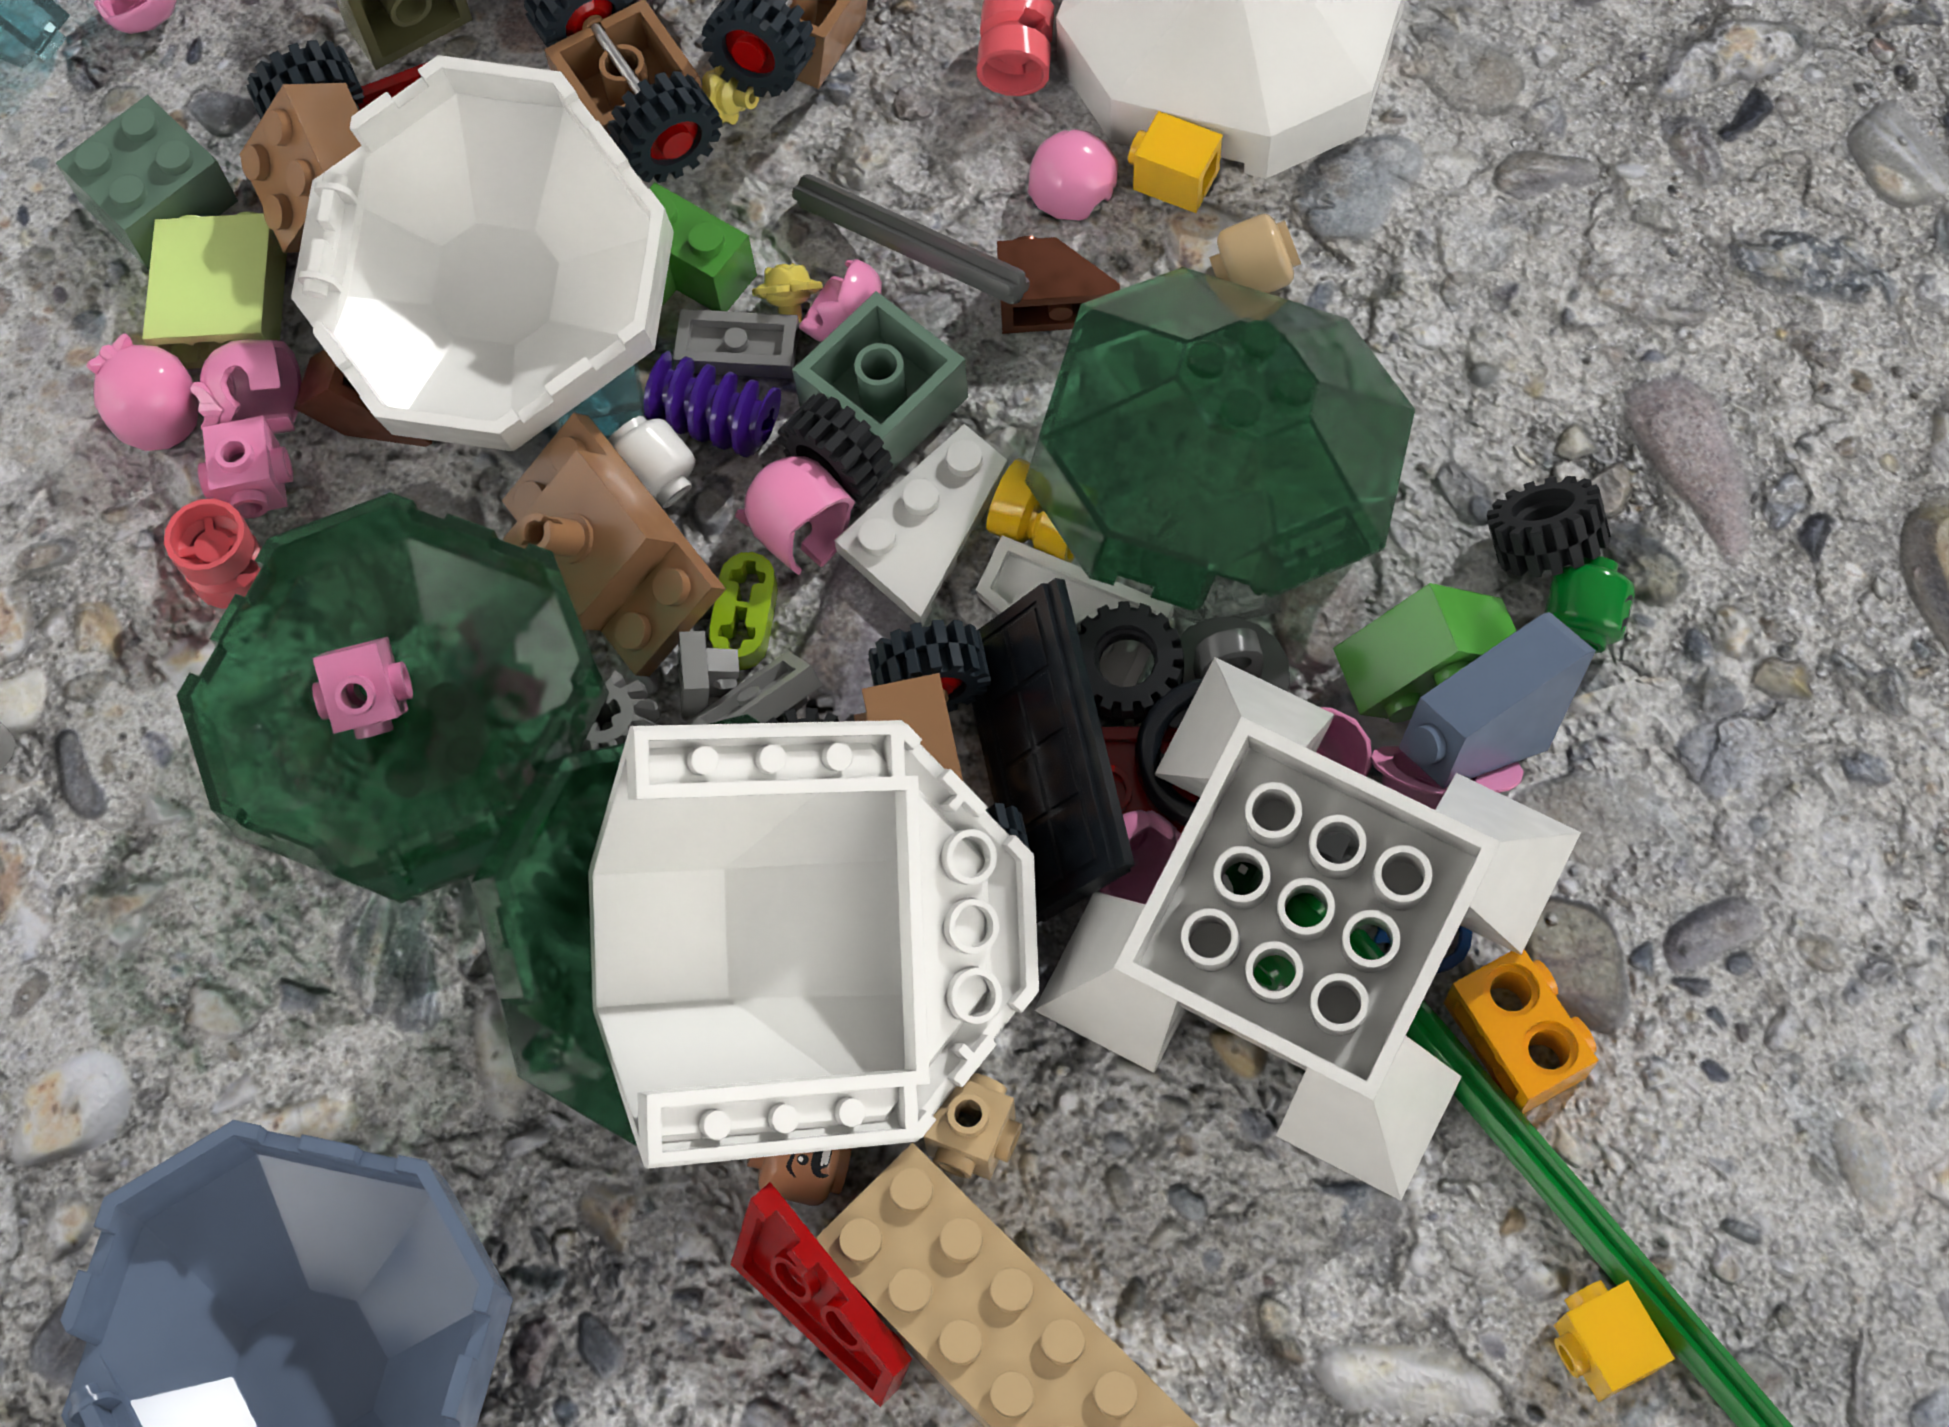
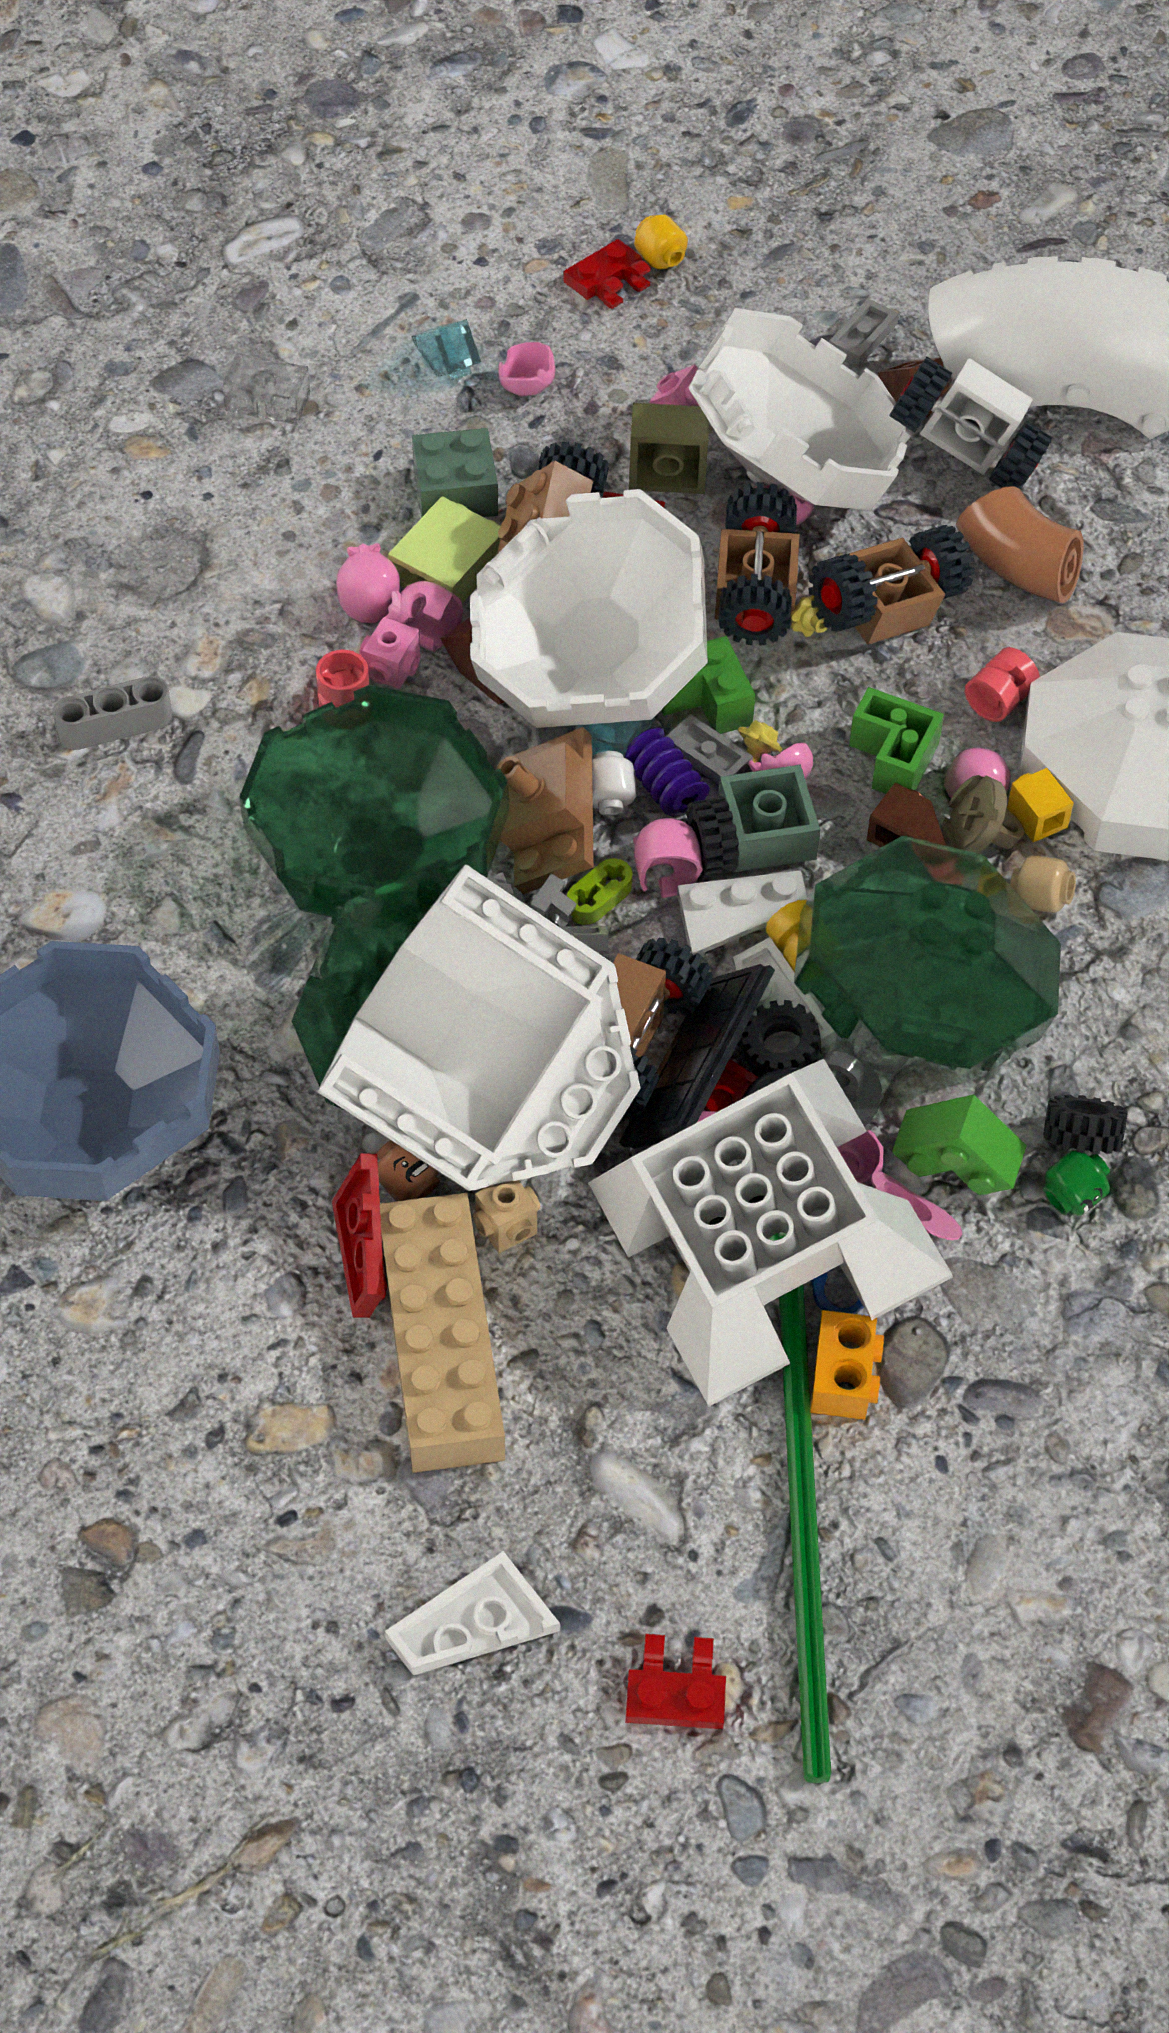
camera: 30 degrees right, 10 degrees down
(373, 668) = (363, 795): bright pink brick -> none
(911, 239) = (848, 753): dark grey axle -> none
(954, 177) = (899, 735): none -> bright green brick
(1122, 220) = (981, 817): none -> dark tan tile
(1499, 704) = (968, 1189): sand blue slope -> none
(1609, 1339) = (759, 1540): yellow brick -> none

